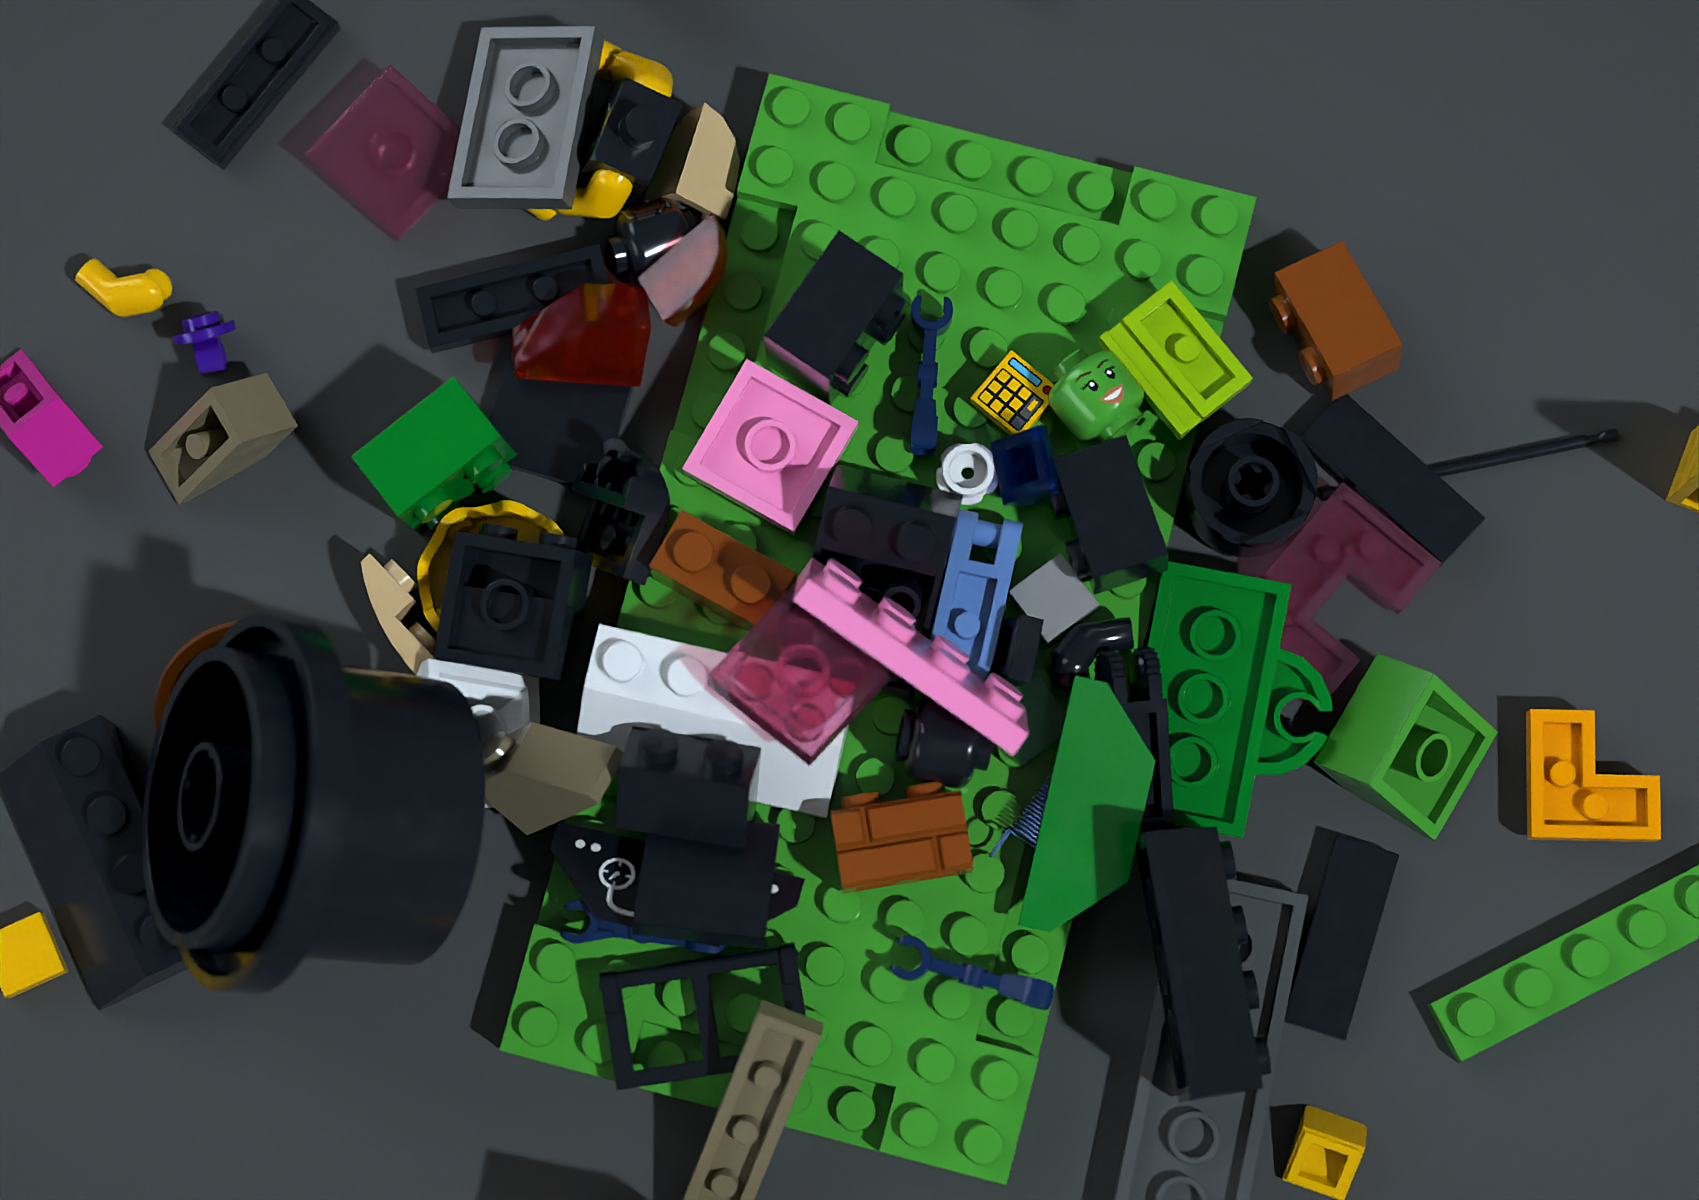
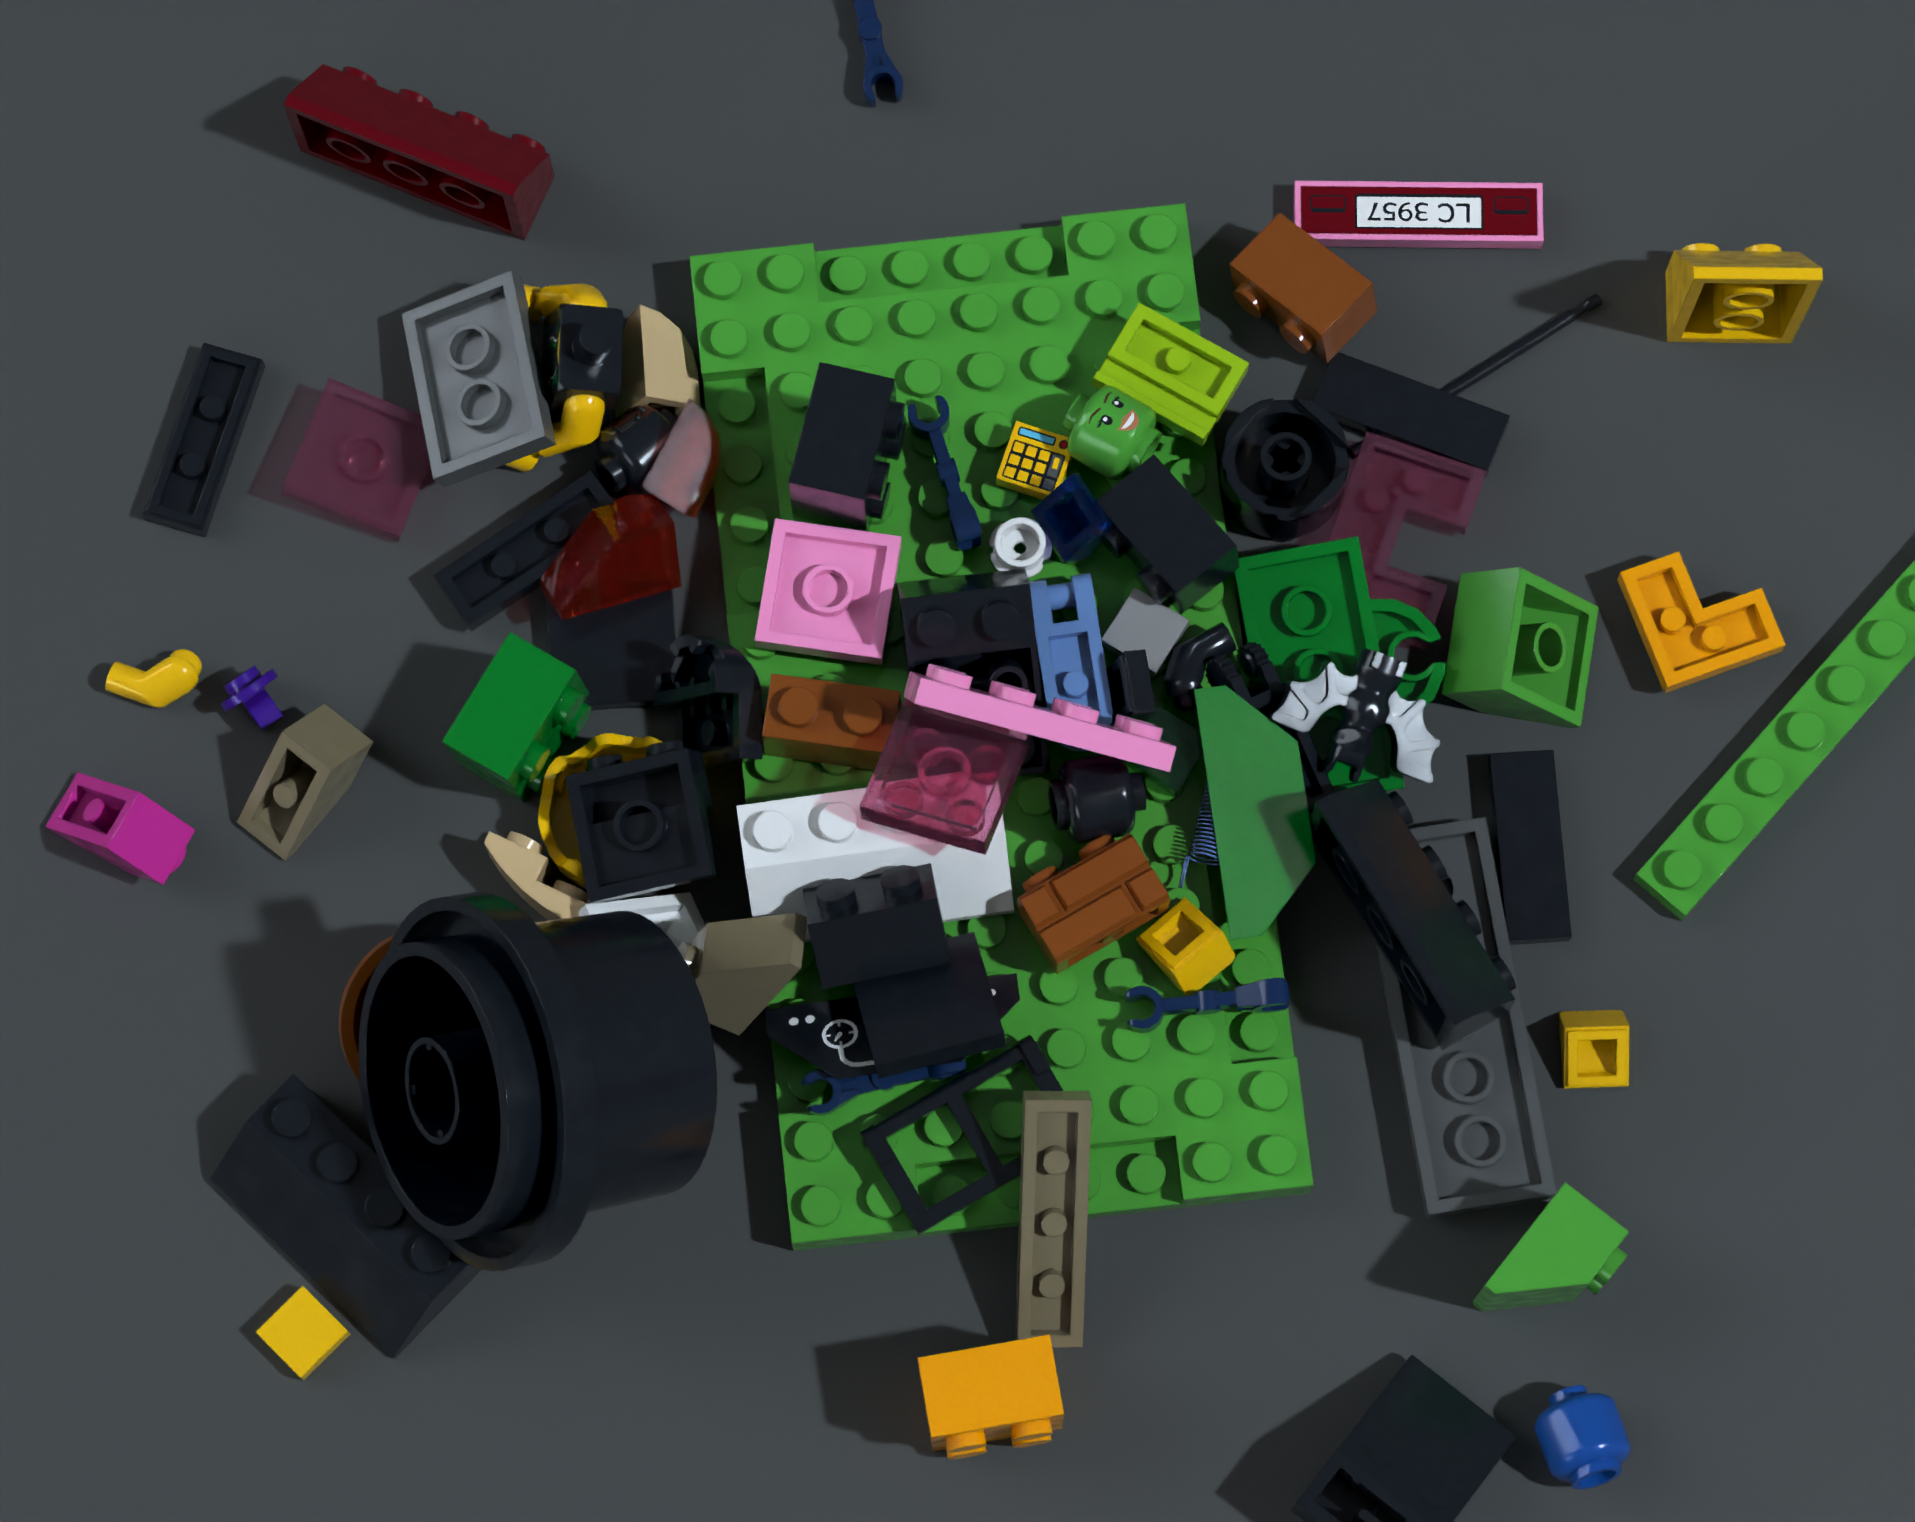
camera: 20 degrees left, 5 degrees down
(974, 915) = (1187, 947): none -> yellow slope
(1235, 748) = (1365, 704): none -> animal
(1478, 289) = (1421, 214): none -> tile

